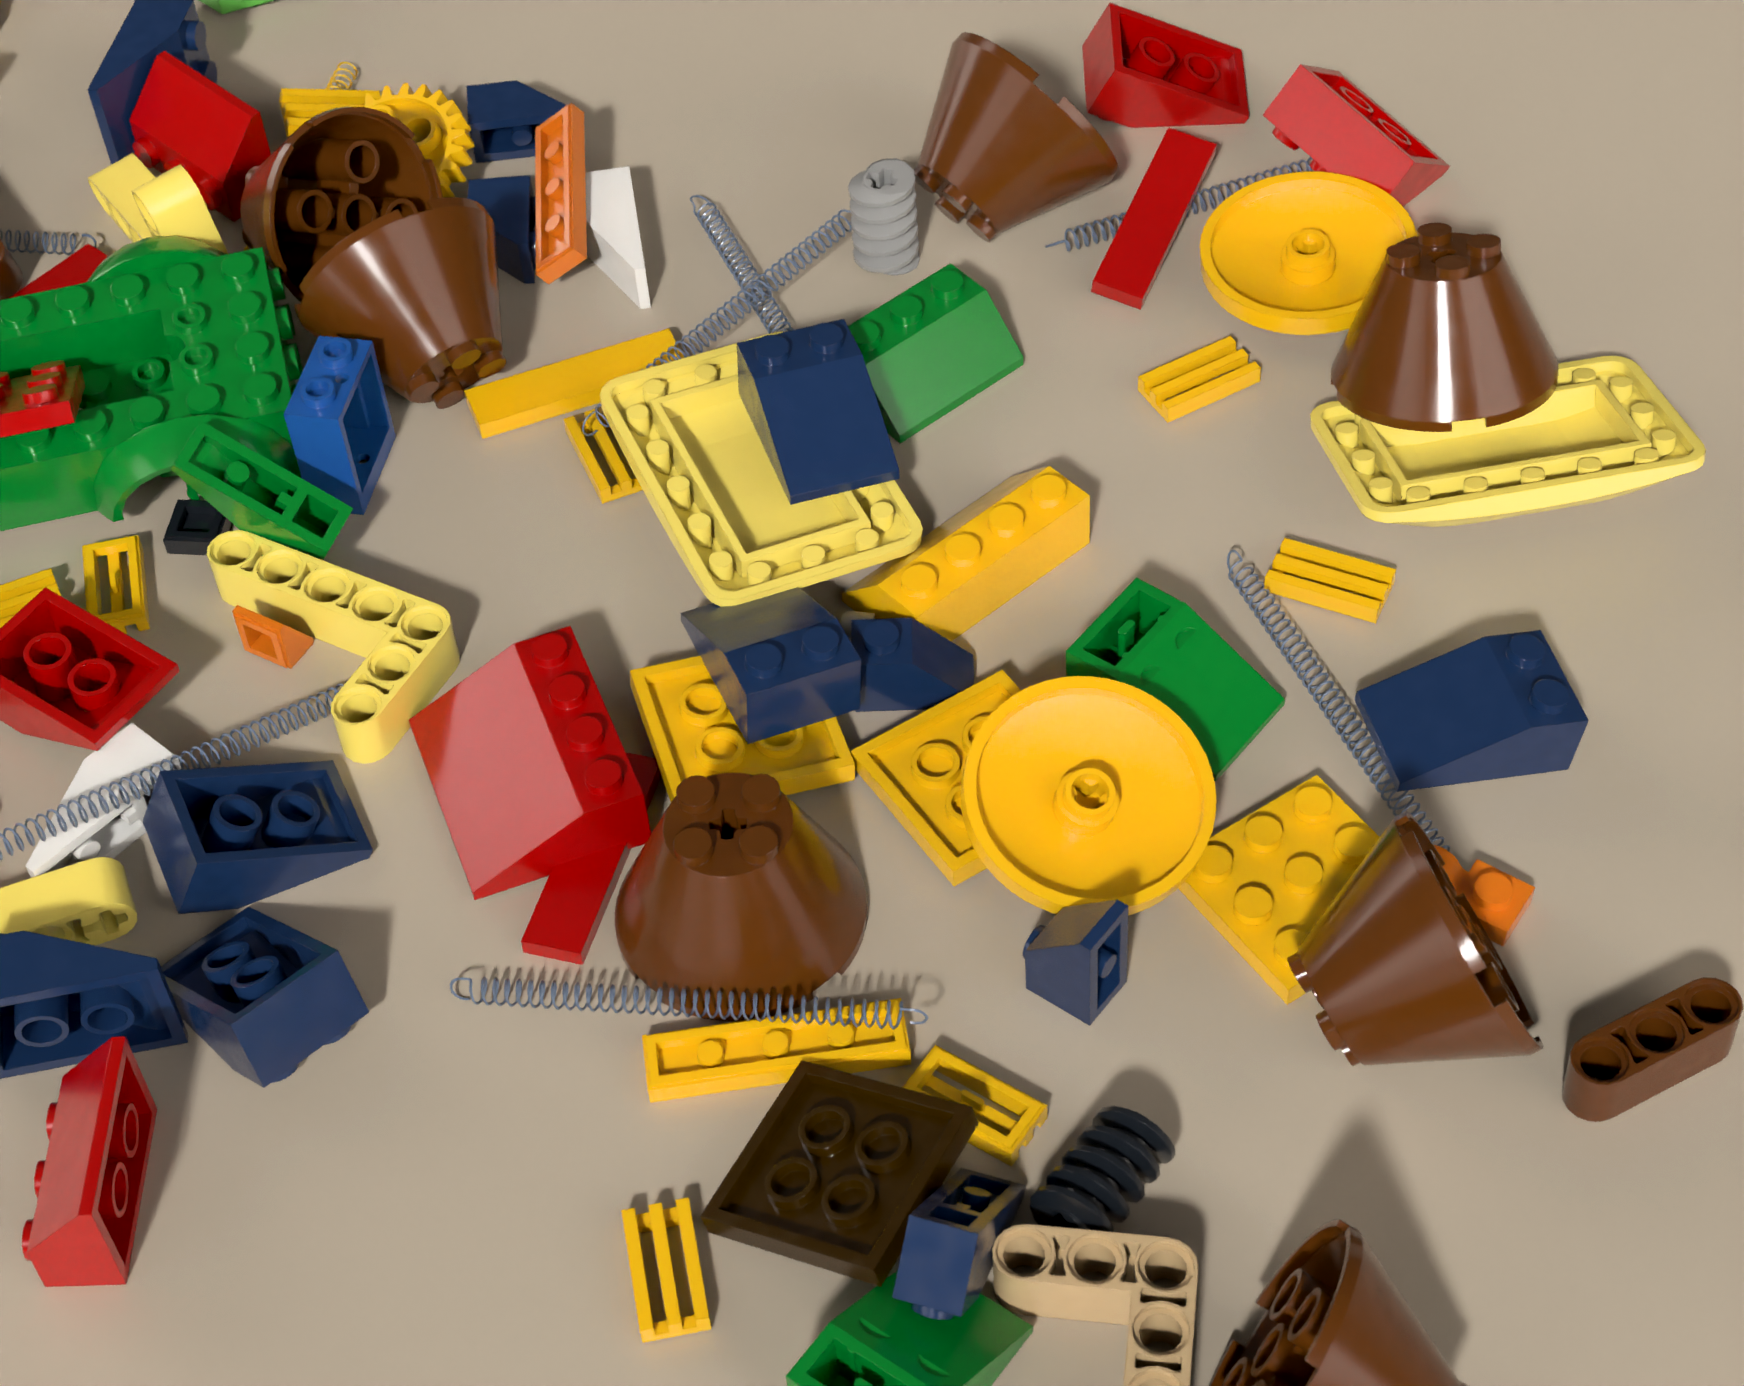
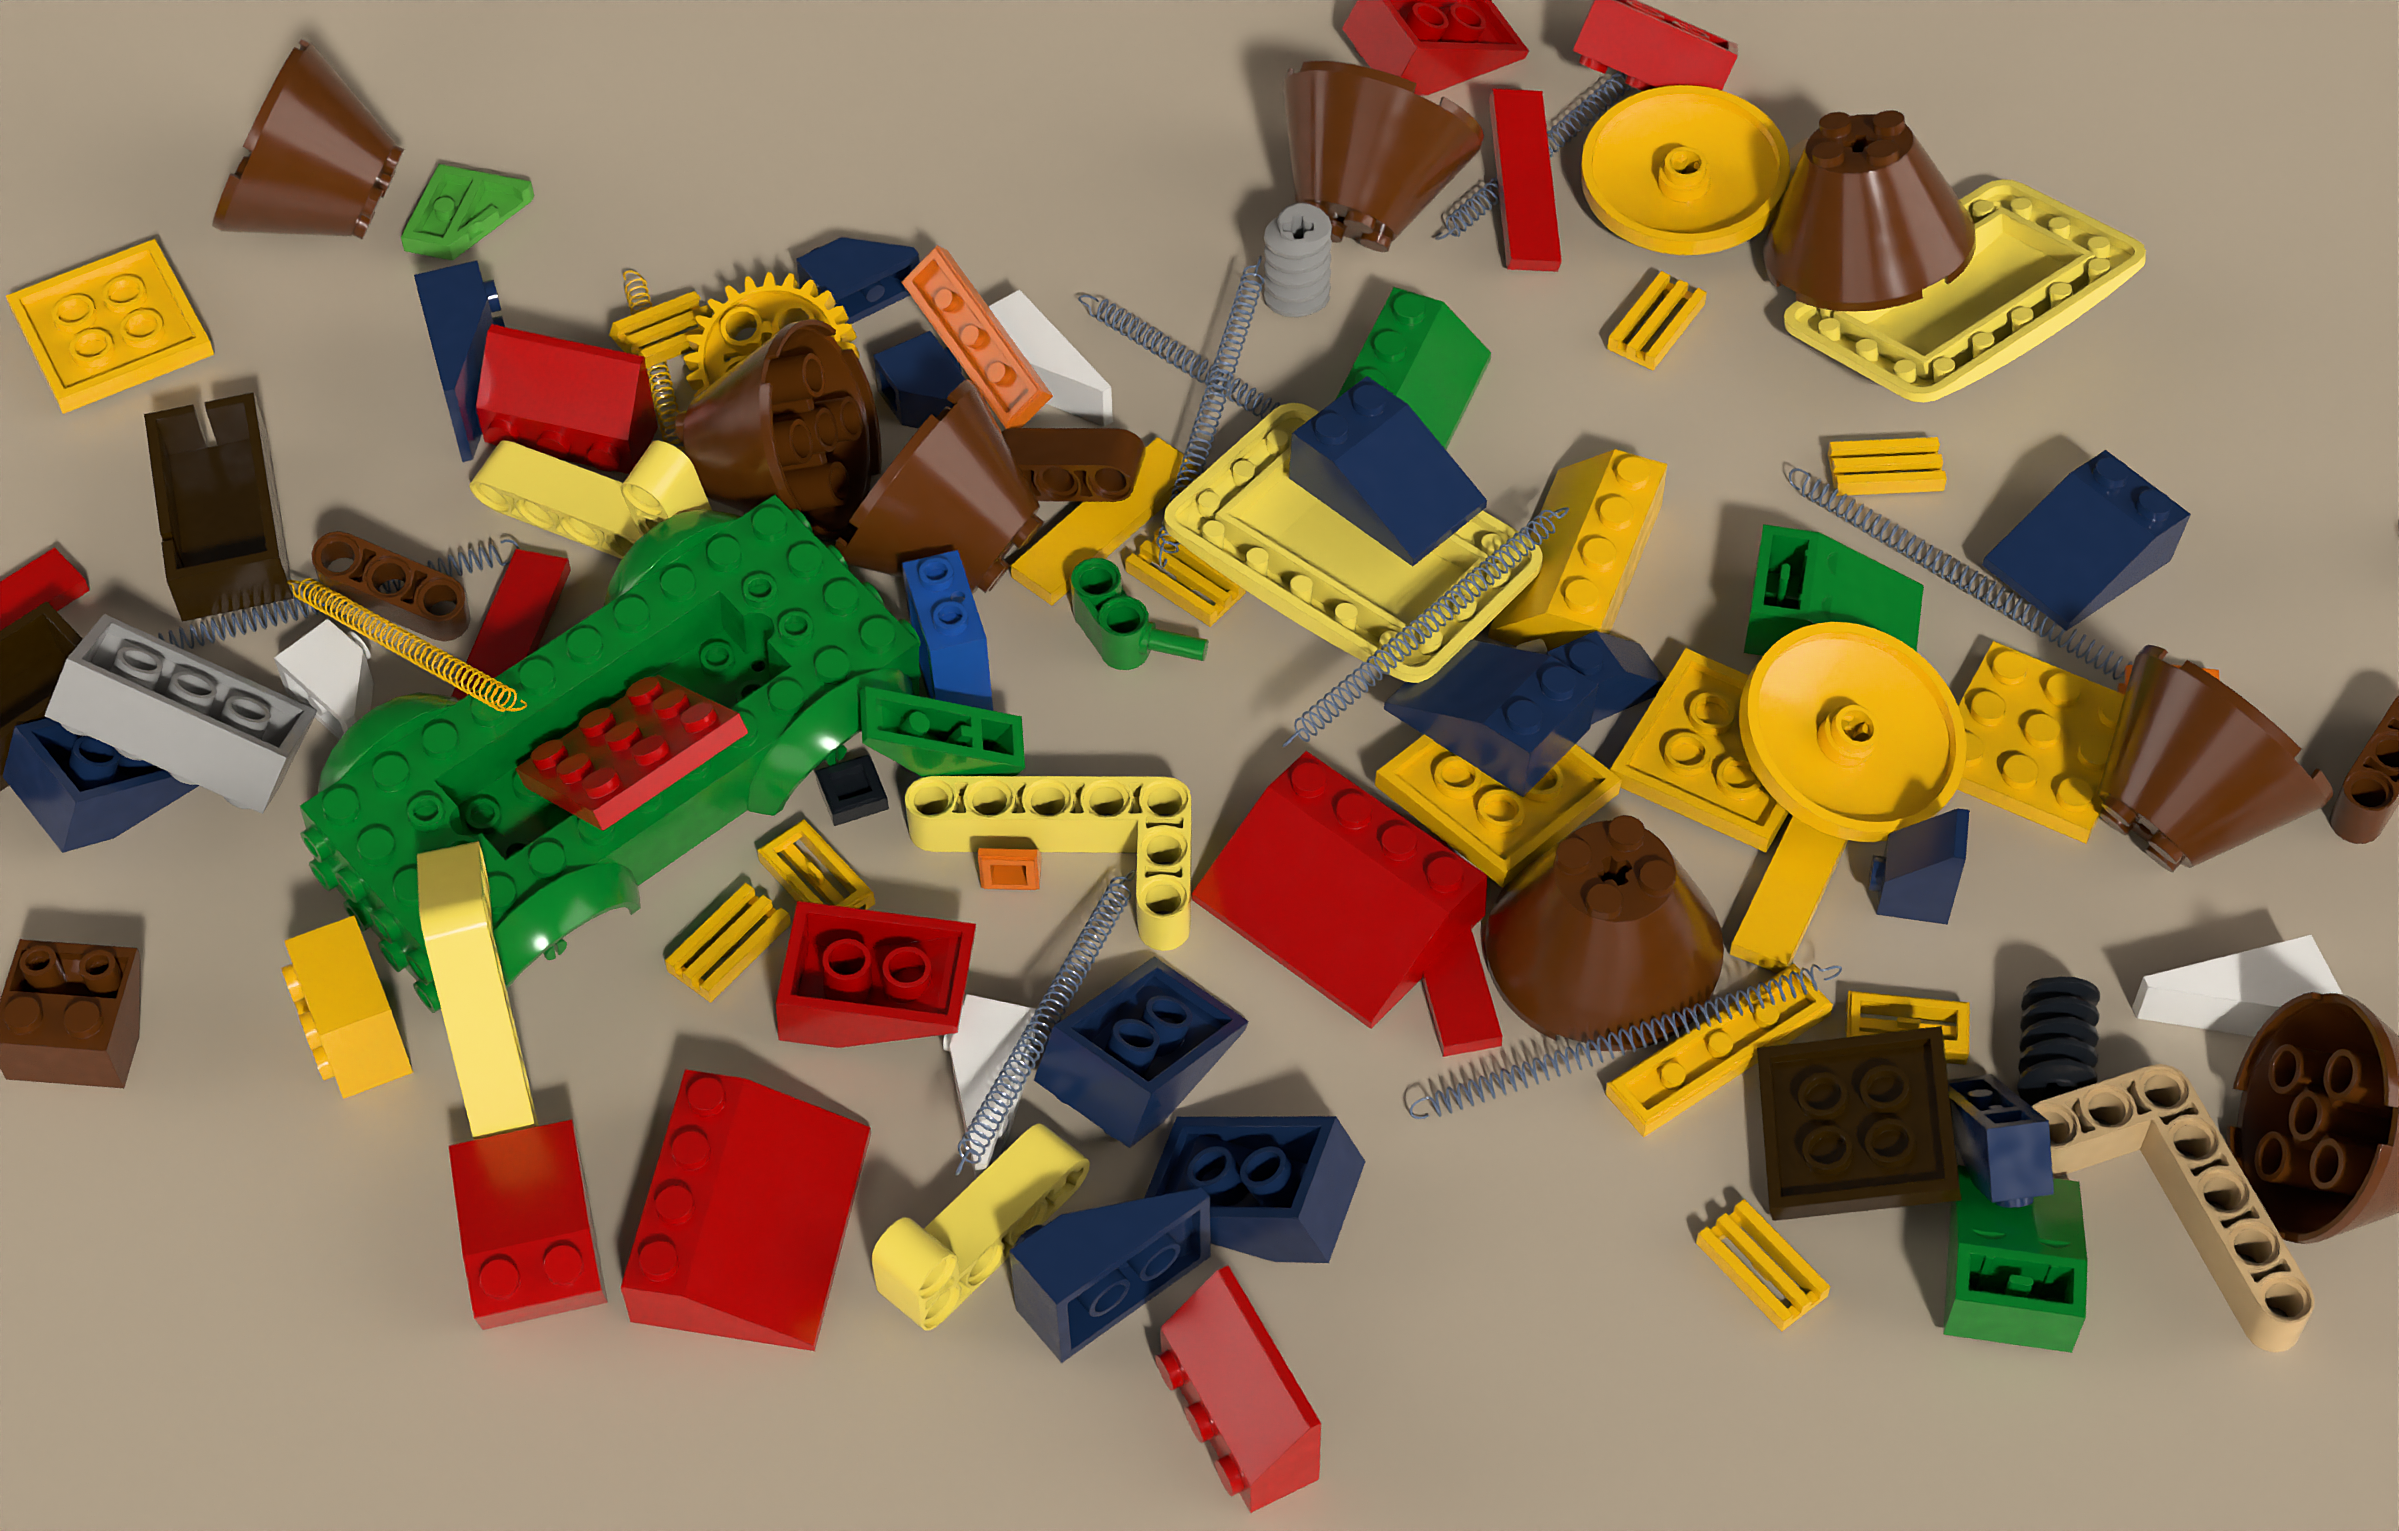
camera: 30 degrees left, 5 degrees up
(512, 464) = (1120, 623): none -> green beam
(566, 321) = (1078, 462): none -> reddish brown beam
(750, 553) = (1384, 661): none -> sand blue piece
(942, 937) = (1787, 897): none -> yellow tile
(1305, 1194) = (2235, 990): none -> white slope

